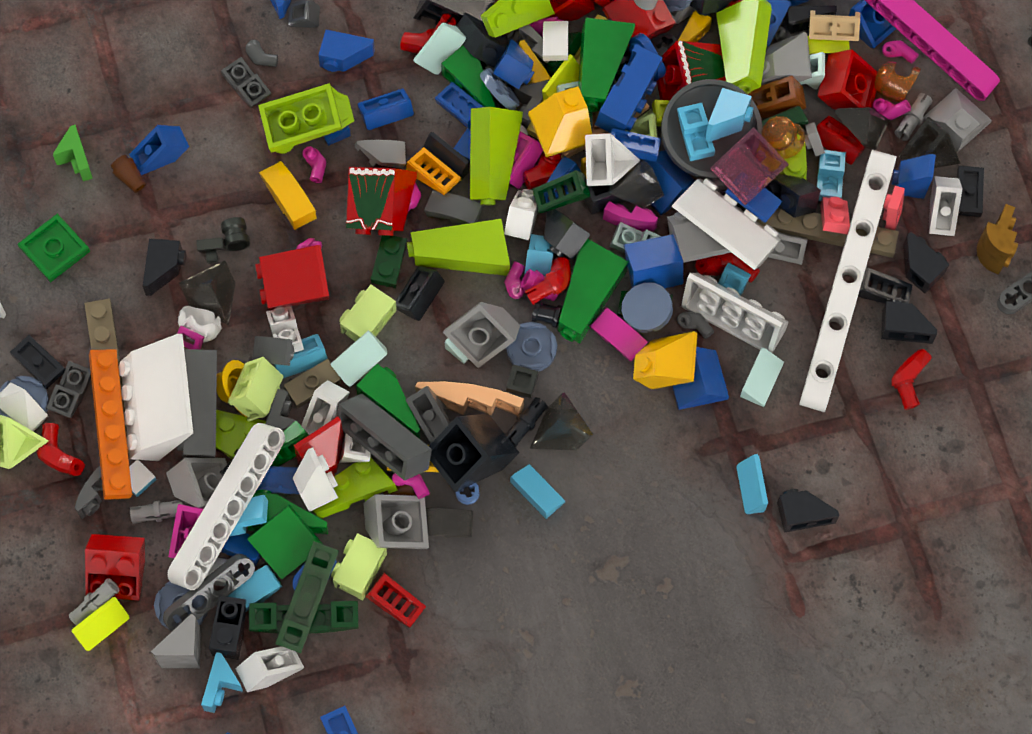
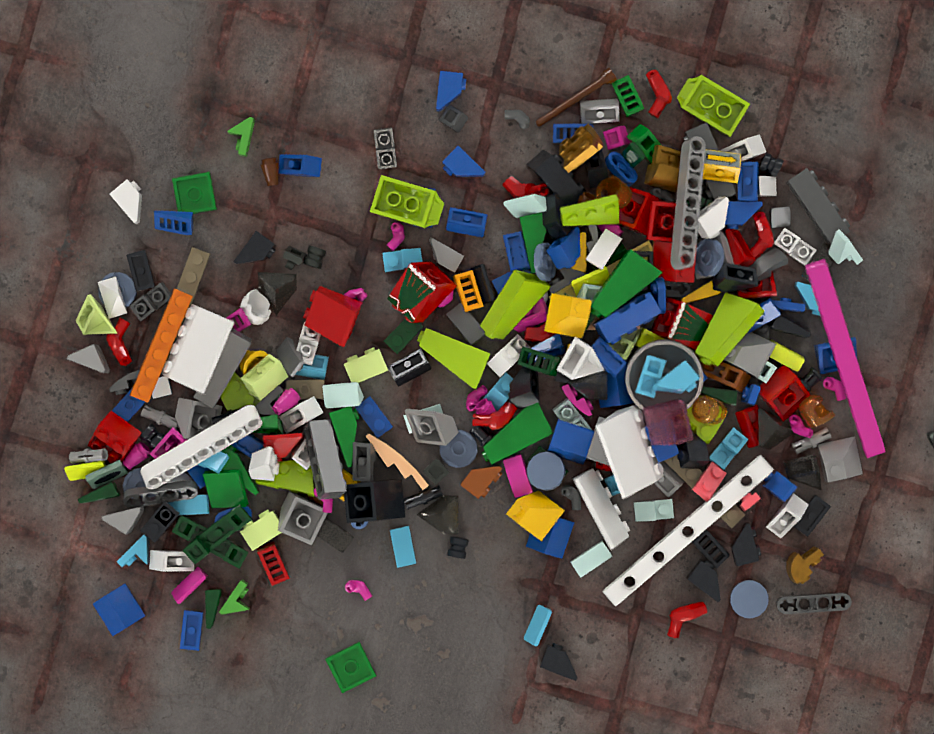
camera: 40 degrees right, 20 degrees up
(31, 487) = (91, 357): none -> light grey slope
(59, 291) = (185, 229): none -> blue slope
(112, 516) = (128, 407): none -> blue plate
(129, 613) = (106, 474): none -> sand green tile
(136, 638) = (105, 492): none -> dark green slope
(153, 570) = (136, 455): none -> dark pink cone
(158, 537) = (151, 436): none -> black wheel
(258, 56) = (404, 132): dark grey arm -> none
(288, 195) = (365, 248): yellow slope -> none
(298, 400) = (286, 401): none -> dark pink cone
(309, 685) = (189, 584): none -> dark pink slope
(333, 187) = (401, 259): none -> medium azure slope
(348, 686) = (212, 600): none -> dark green slope
(377, 674) = (233, 604): none -> bright green slope
(411, 366) = (374, 417): none -> blue plate
(515, 567) = (358, 587): none -> dark pink arm
(565, 666) = (350, 667): none -> green tile
(577, 363) = (479, 480): none -> dark orange slope
(602, 452) = (458, 547): none -> black wheel
(794, 285) = (653, 510): none -> light aqua slope
(813, 139) = (732, 419): light grey plate -> none
(815, 99) = (750, 394): none -> blue plate
(834, 27) = (796, 352): tan hinge -> none
(869, 55) = (814, 376): none -> black bush
(966, 318) = (749, 599): none -> sand blue tile

